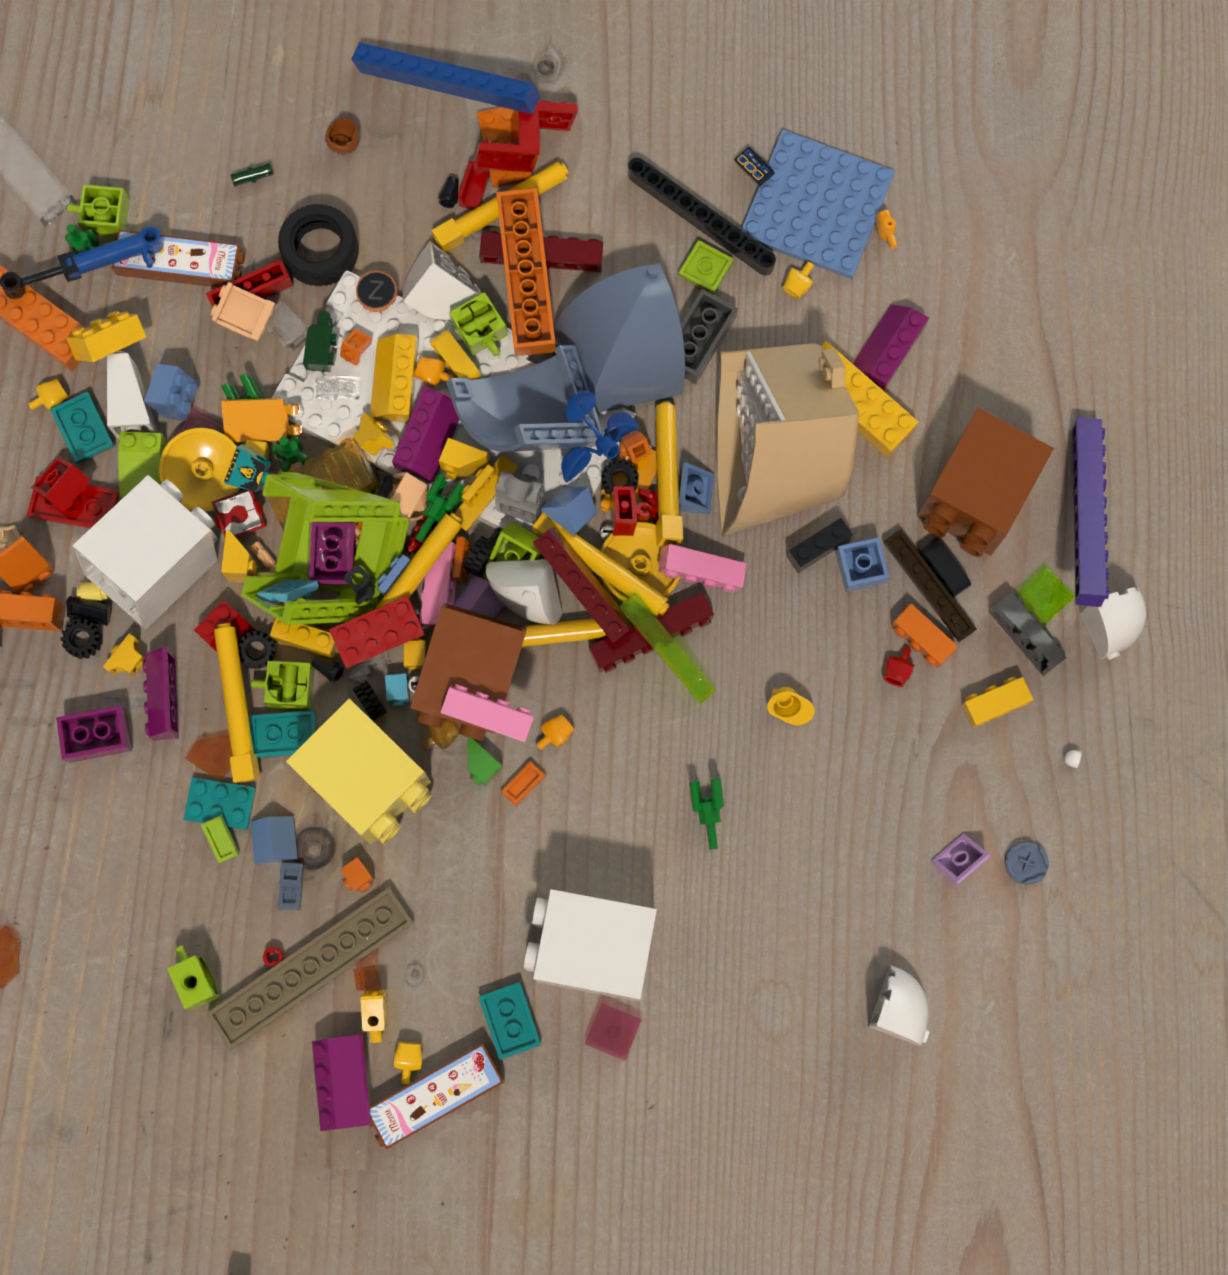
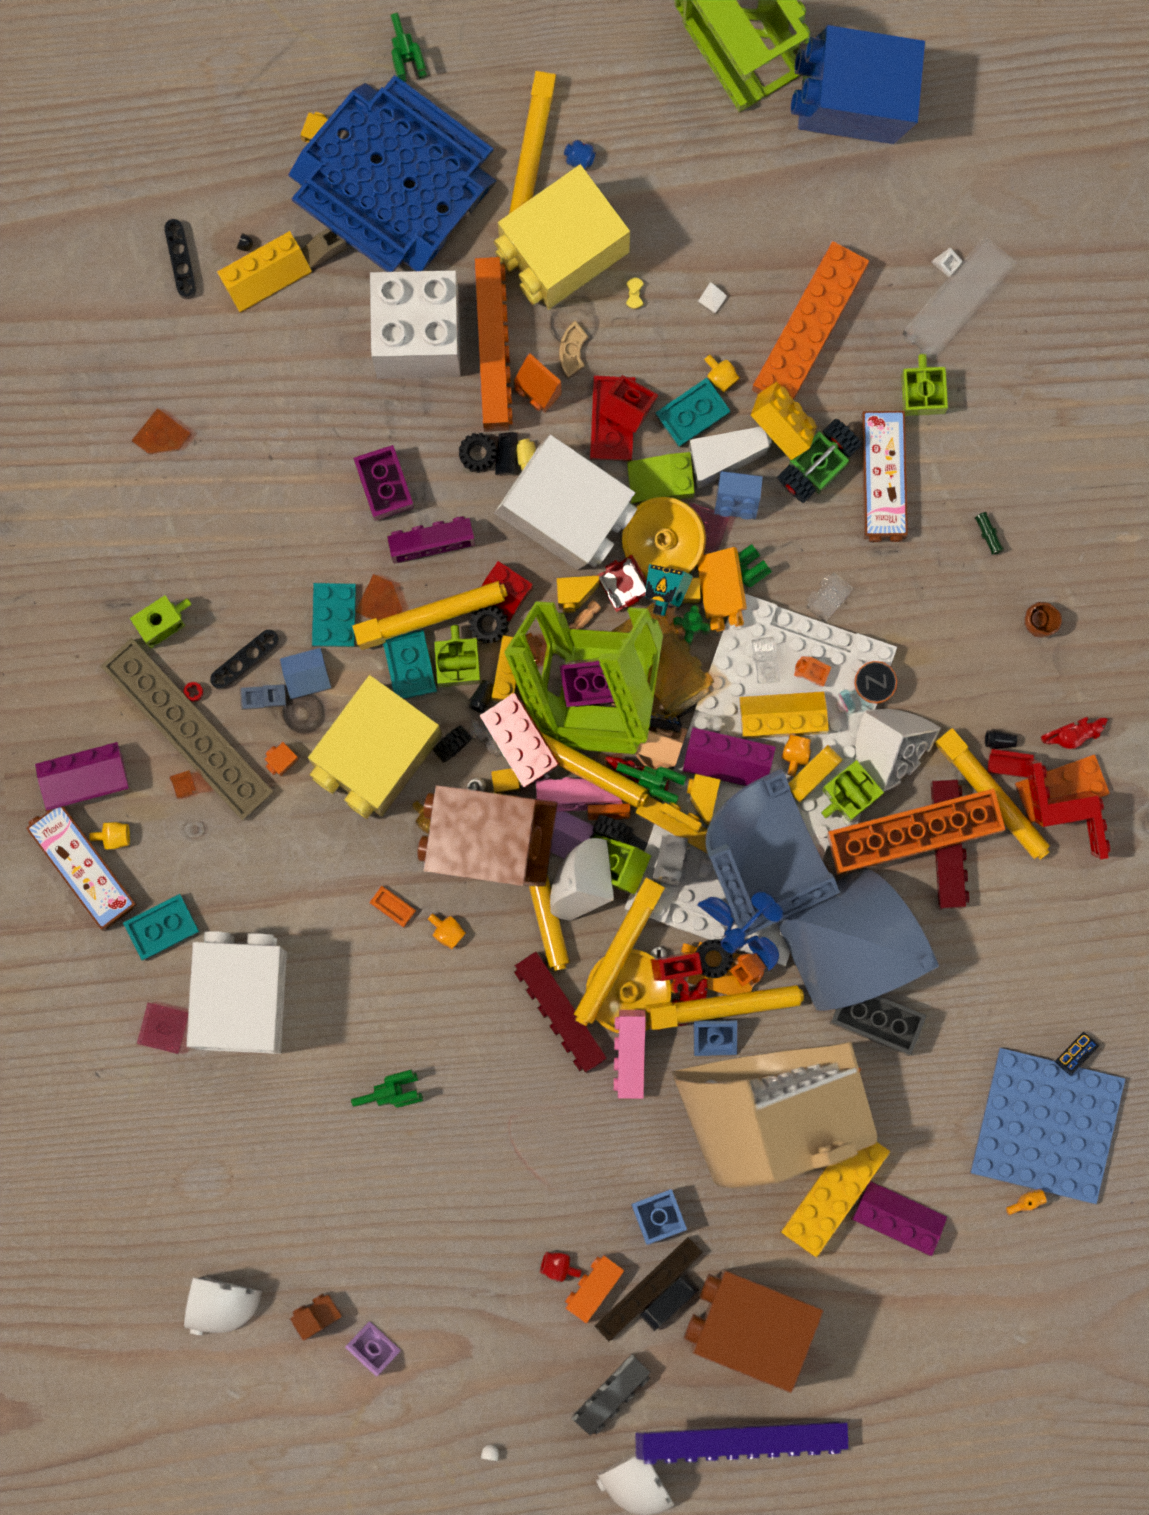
camera: 85 degrees right, 5 degrees up
(76, 264) = (863, 390): blue piece -> none
(79, 240) = (881, 377): green plant -> none
(125, 657) = (464, 499): yellow brick -> none
(157, 315) = (821, 462): none -> brick
(220, 839) = (298, 621): lime tile -> none
(242, 312) = (831, 552): light nougat panel -> none
(246, 902) = (246, 662): none -> black beam
(261, 282) = (861, 553): red brick -> none
(288, 591) = (547, 646): medium azure plate -> none
(312, 218) = (942, 596): black tyre -> none
(320, 344) = (809, 635): dark green hinge -> none
(365, 589) = (562, 721): black bracket -> none
(372, 435) = (718, 703): yellow brick -> none
(374, 1004) = (151, 797): yellow torso -> none
(390, 318) = (847, 701): none -> clear light blue tile
(397, 566) = (588, 750): medium blue plate -> none
(397, 689) = (467, 769): medium azure brick -> none
(446, 78) = (1115, 716): blue brick -> none
(455, 125) = (1074, 735): none -> red animal
(481, 764) = (403, 863): bright green slope -> none
(487, 713) = (439, 860): bright pink brick -> none
(571, 508) = (670, 913): medium blue slope -> none
(583, 584) = (592, 937): dark red brick -> none
(667, 648) = (542, 1029): clear neon green plate -> none
(706, 224) = (1021, 997): black beam -> none
(706, 267) = (957, 1017): lime plate -> none
(790, 706) = (503, 1160): yellow piece -> none
(797, 282) = (956, 1116): yellow piece -> none
(819, 545) = (674, 1171): black brick -> none
(923, 911) = (315, 1317): none -> dark orange brick
(997, 701) = (537, 1370): yellow brick -> none
(1026, 863) = (379, 1417): sand blue tile -> none
(1045, 595) = (654, 1408): clear neon green plate -> none

